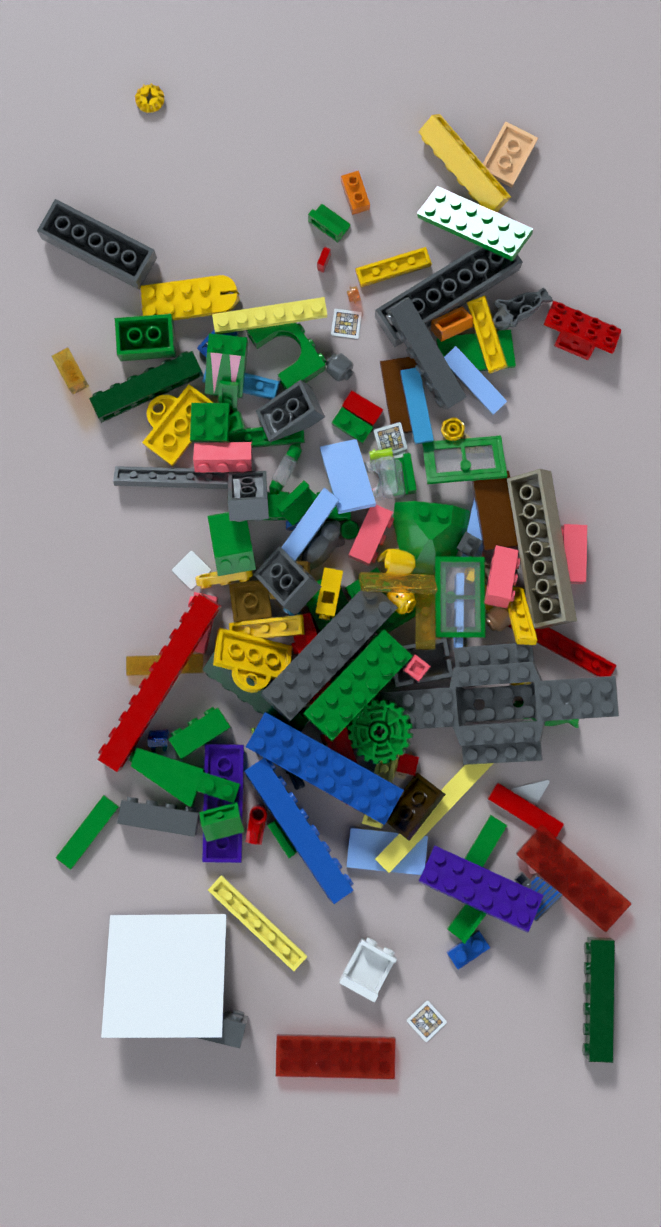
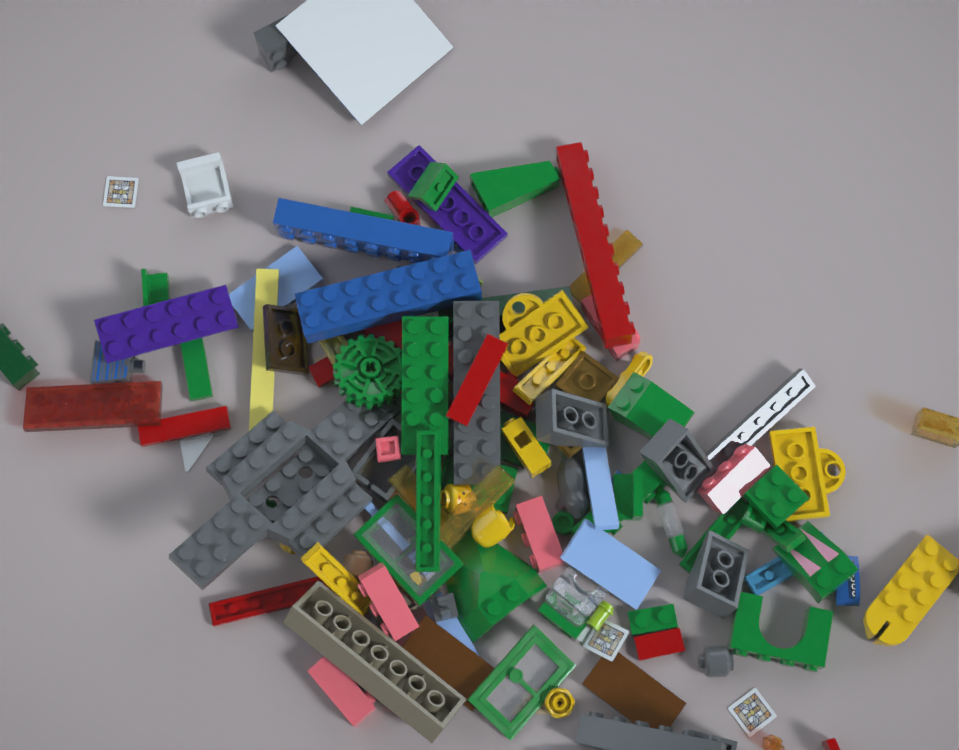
camera: 140 degrees right, 10 degrees down
(87, 832) = (533, 88): green tile -> none
(145, 337) = (909, 519): green brick -> none
(146, 386) = (862, 479): dark green brick -> none
(157, 817) = (488, 146): dark grey brick -> none
(158, 738) = (549, 204): clear blue tile -> none
(189, 568) = (665, 363): white sticker -> none
(199, 732) = (521, 239): green brick -> none
(218, 787) = (462, 209): green plate -> none
(257, 923) = (329, 141): light yellow plate -> none
(269, 315) = (824, 643): light yellow plate -> none
(324, 654) = (477, 380): none -> red tile
(335, 1056) = (171, 101): clear red plate -> none
(416, 406) = (611, 690): dark azure tile -> none
(423, 611) = (428, 500): none -> green tile
(465, 953) = (131, 276): blue plate -> none

